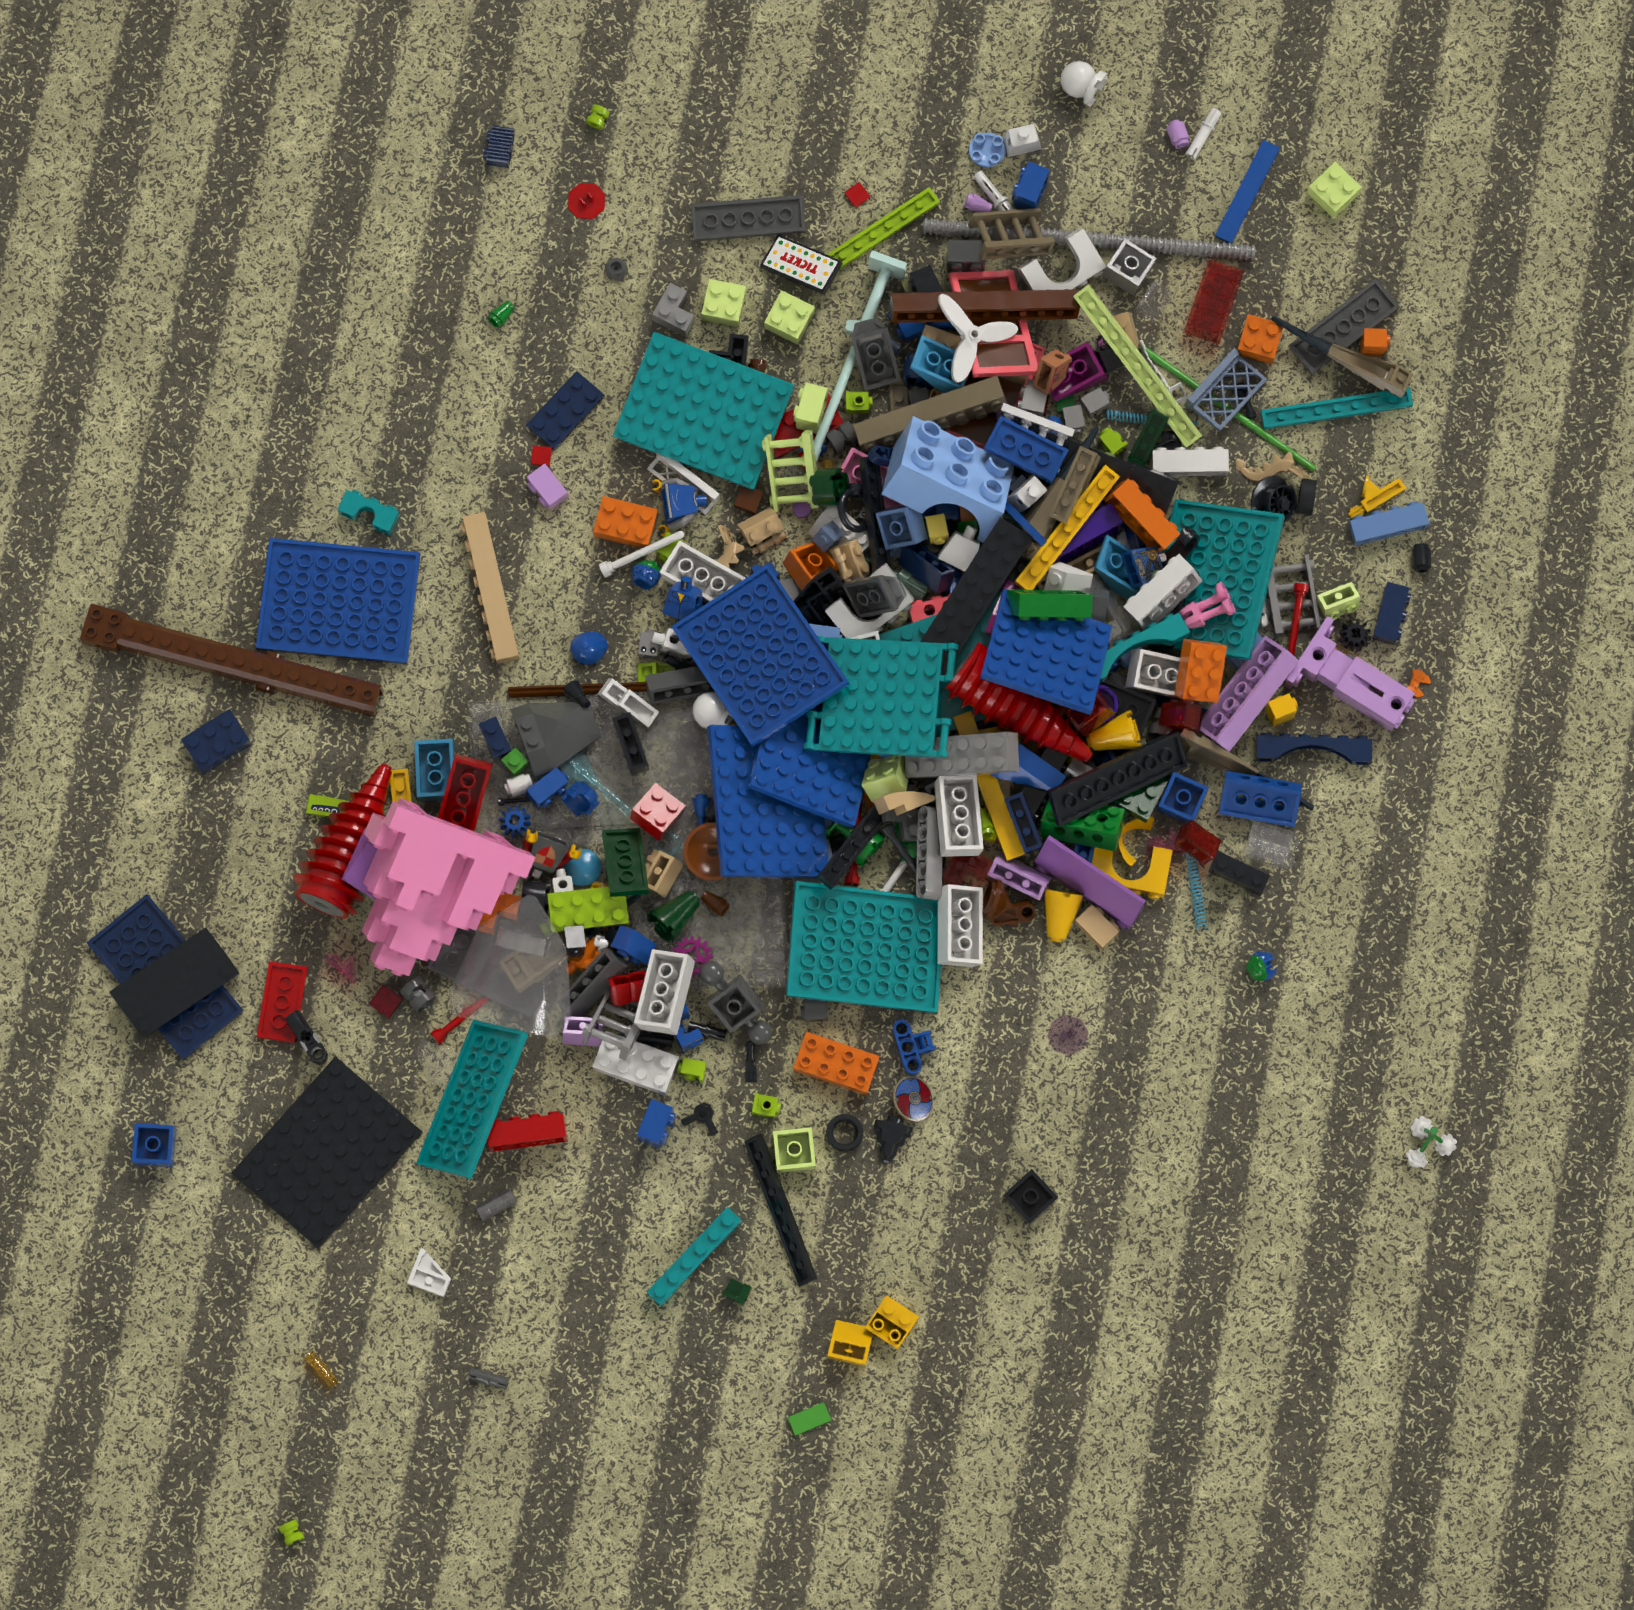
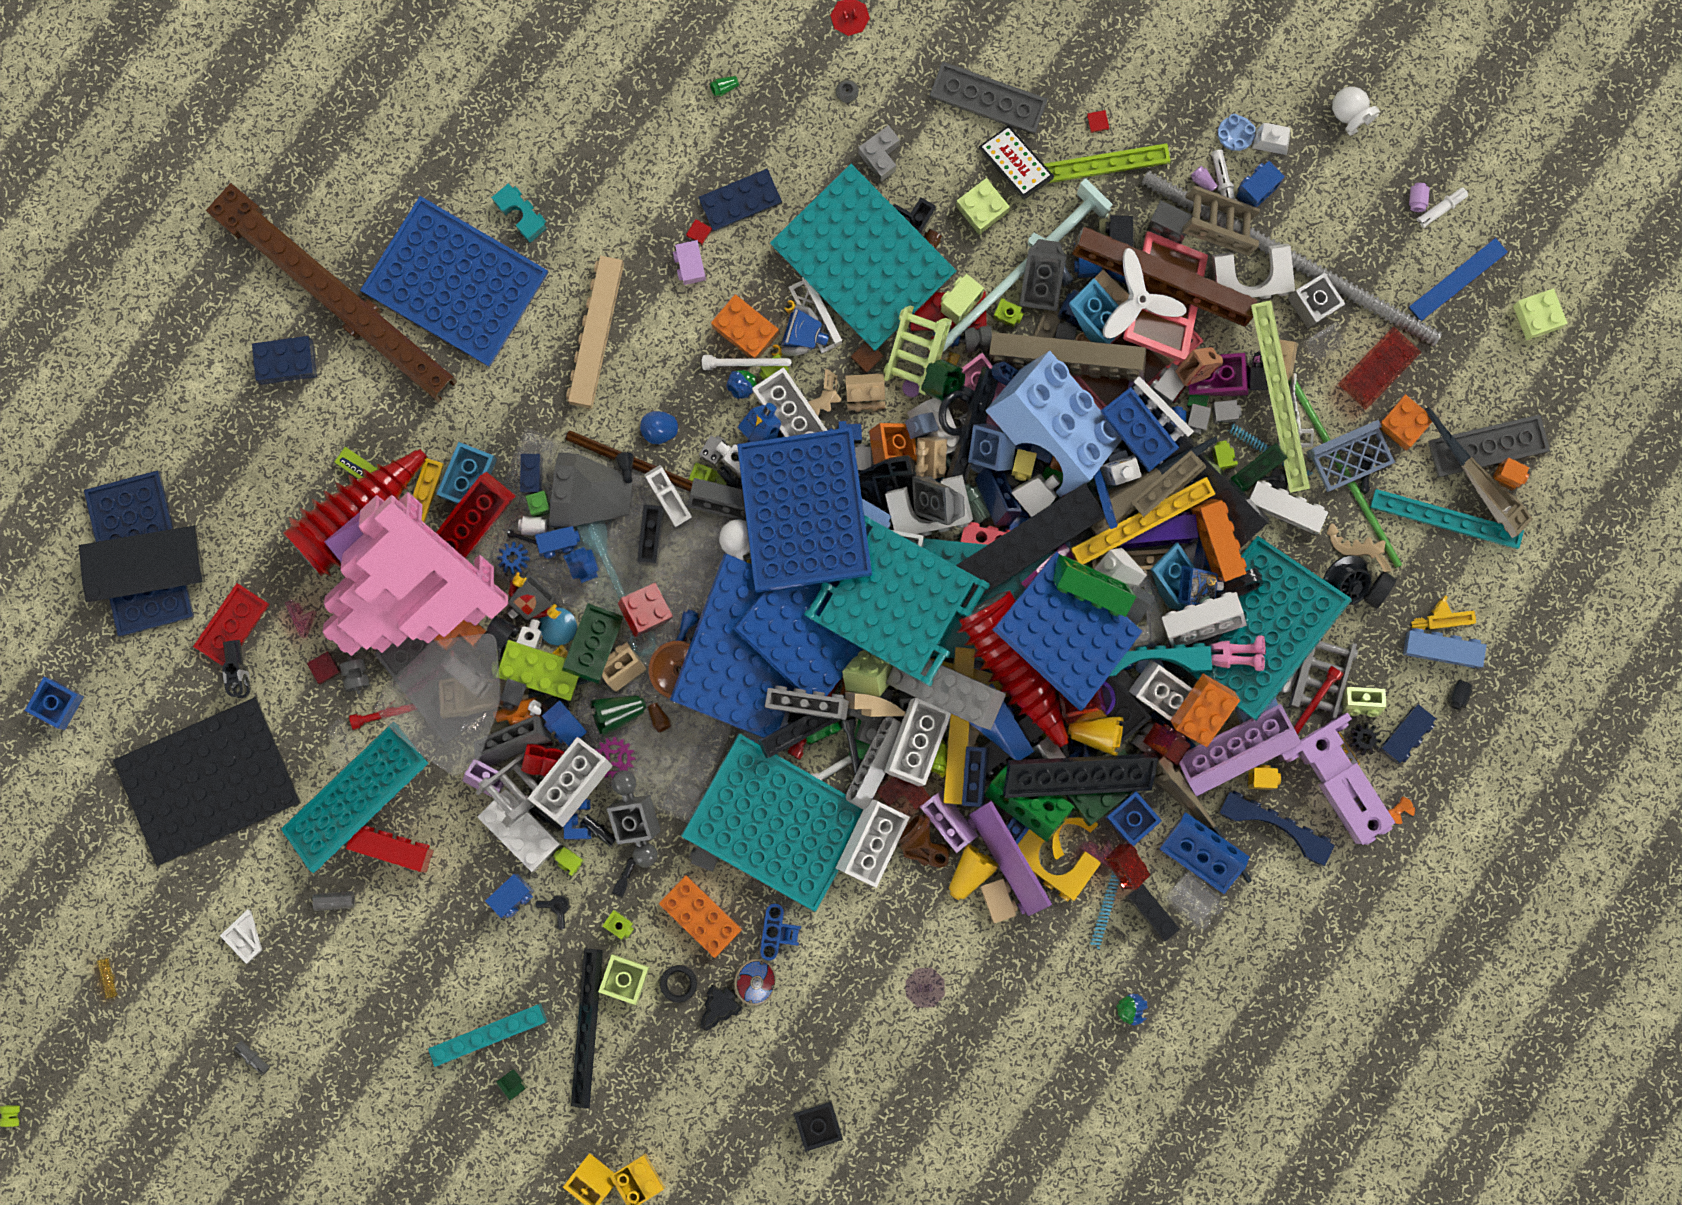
camera: 25 degrees right, 5 degrees up
(724, 303) = (929, 166): yellowish green brick -> none
(844, 825) = (809, 704): none -> light grey brick

